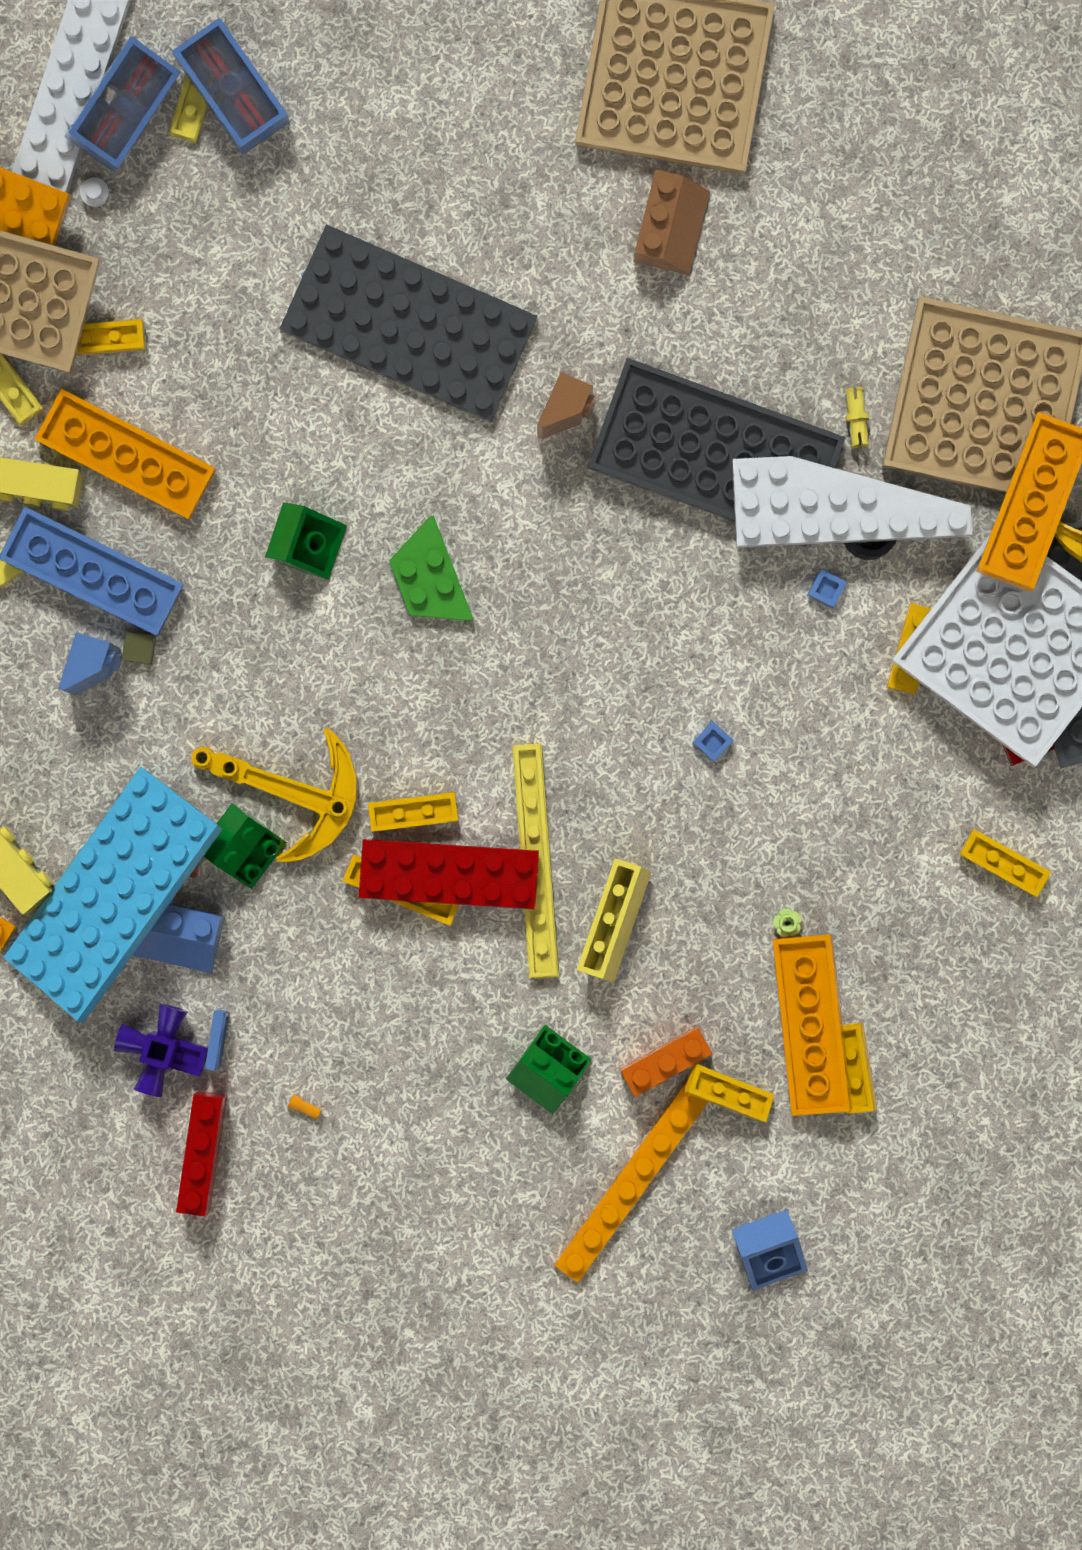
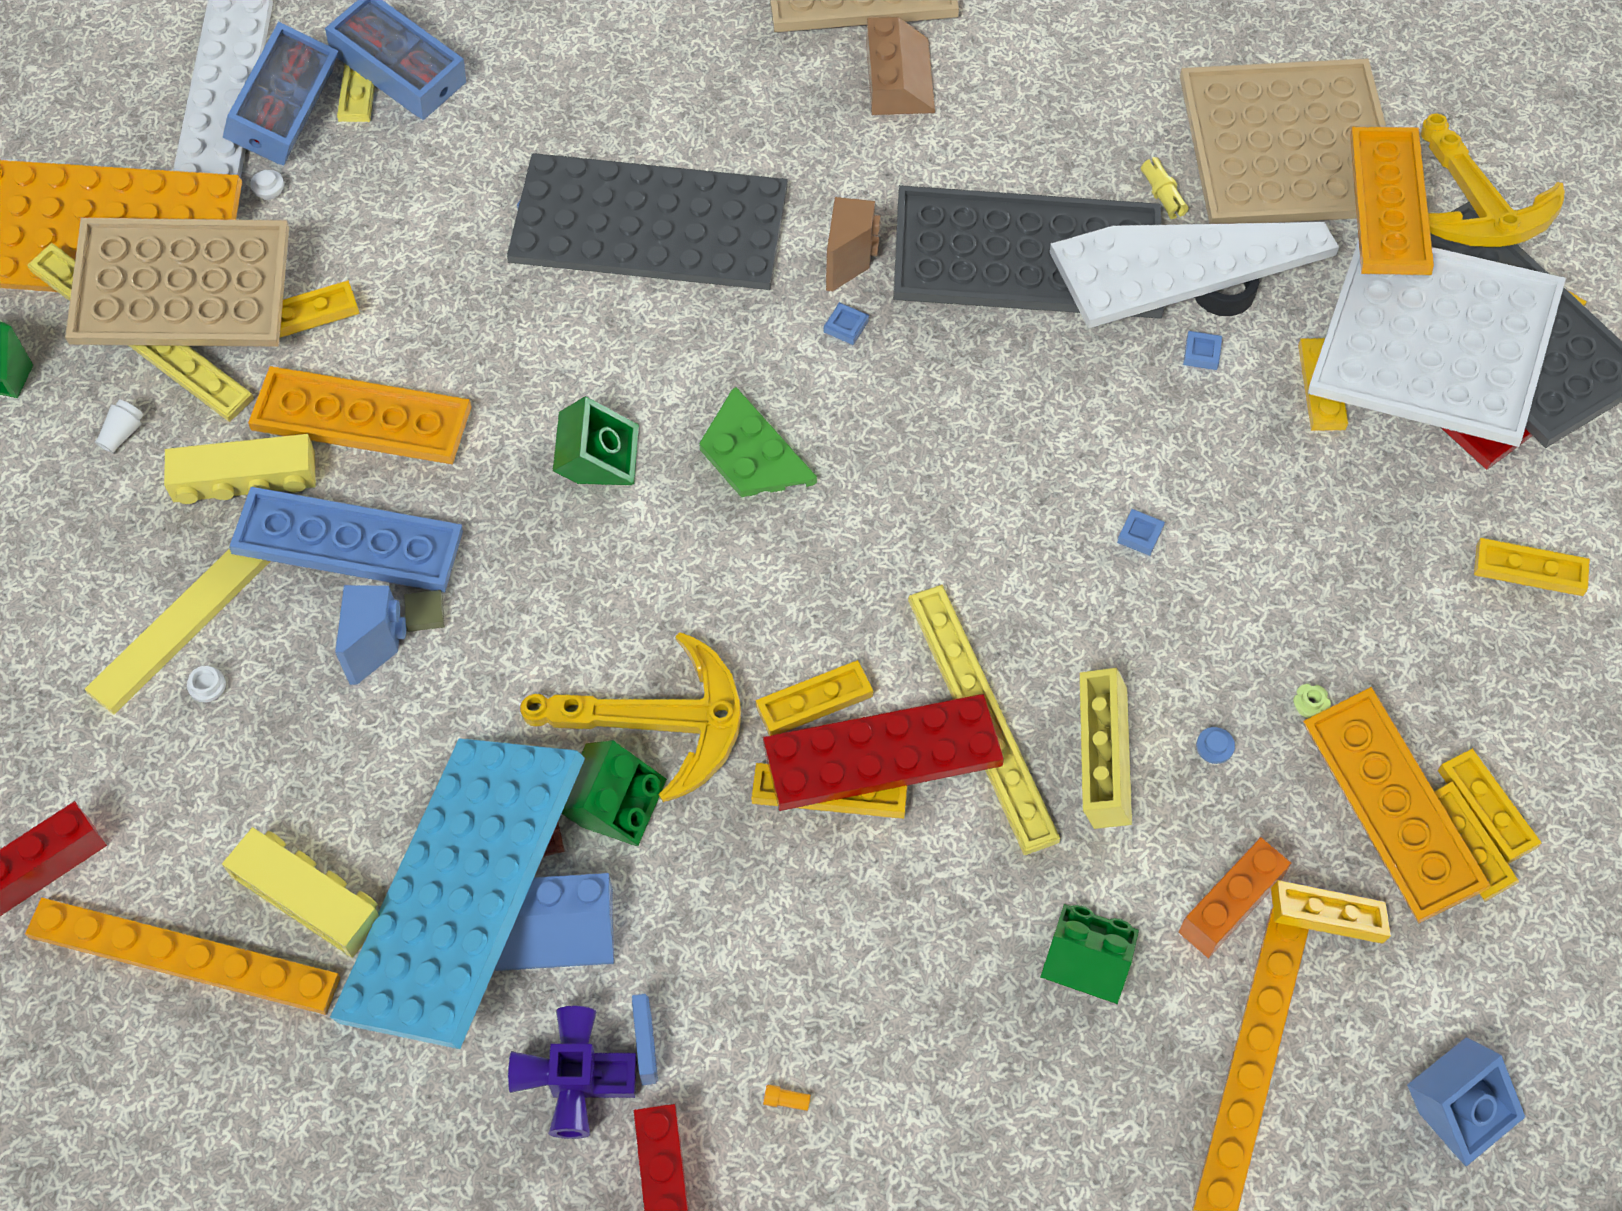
camera: 20 degrees left, 25 degrees down
(542, 476) = (846, 323): none -> medium blue tile
(700, 937) = (1215, 745): none -> medium blue plate
(882, 1045) = (1490, 805): none -> yellow plate

